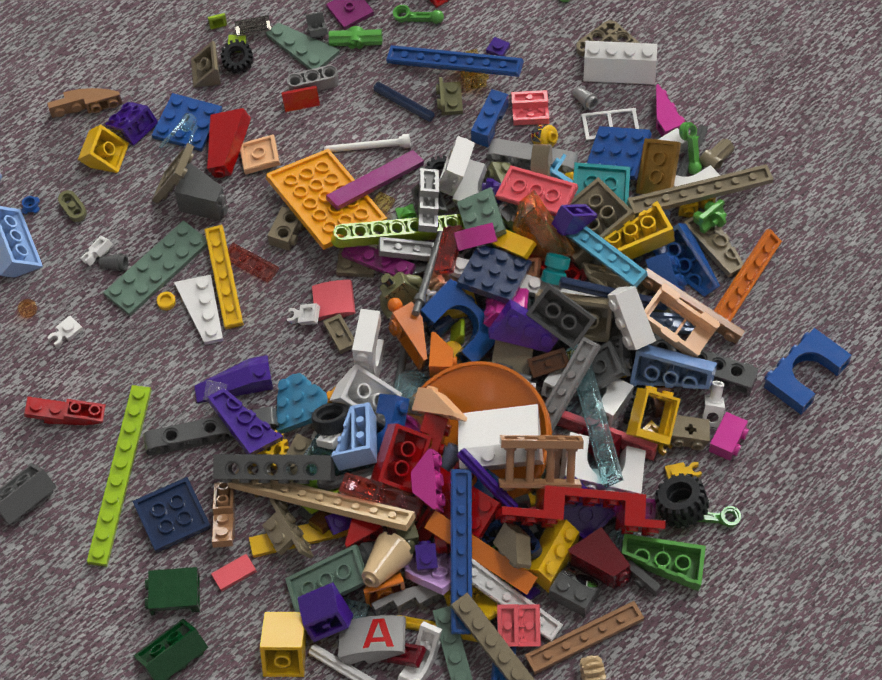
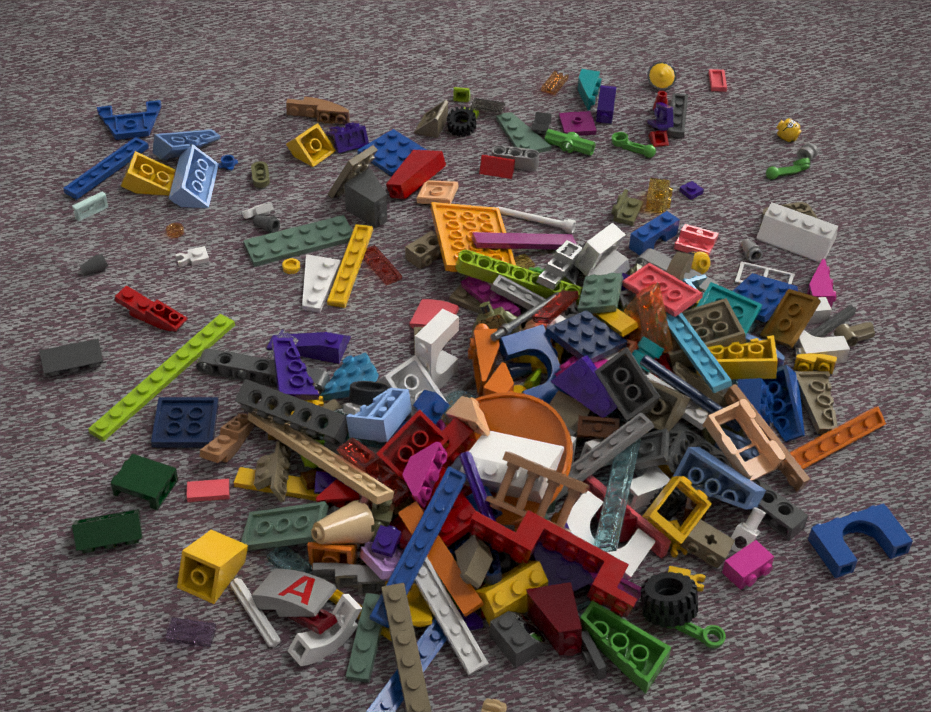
camera: 20 degrees right, 15 degrees down
(186, 124) = (390, 148): clear light blue plant -> none
(306, 315) = (403, 317): white plate -> none
(324, 612) = (262, 549): dark purple slope -> none
(404, 101) = (585, 199): dark blue axle -> none
(455, 60) = (647, 181): blue tile -> none
(475, 236) = (584, 301): dark pink slope -> none
(520, 624) = (443, 641): coral slope -> none
(573, 218) = (682, 316): dark purple slope -> none
(584, 637) = (503, 684): medium nougat plate -> none
(631, 317) = (696, 413): white slope -> none
(693, 149) = (833, 314): bright green piece -> none
(703, 189) = (829, 349): dark tan plate -> none
(713, 216) = (826, 374): bright green hips -> none

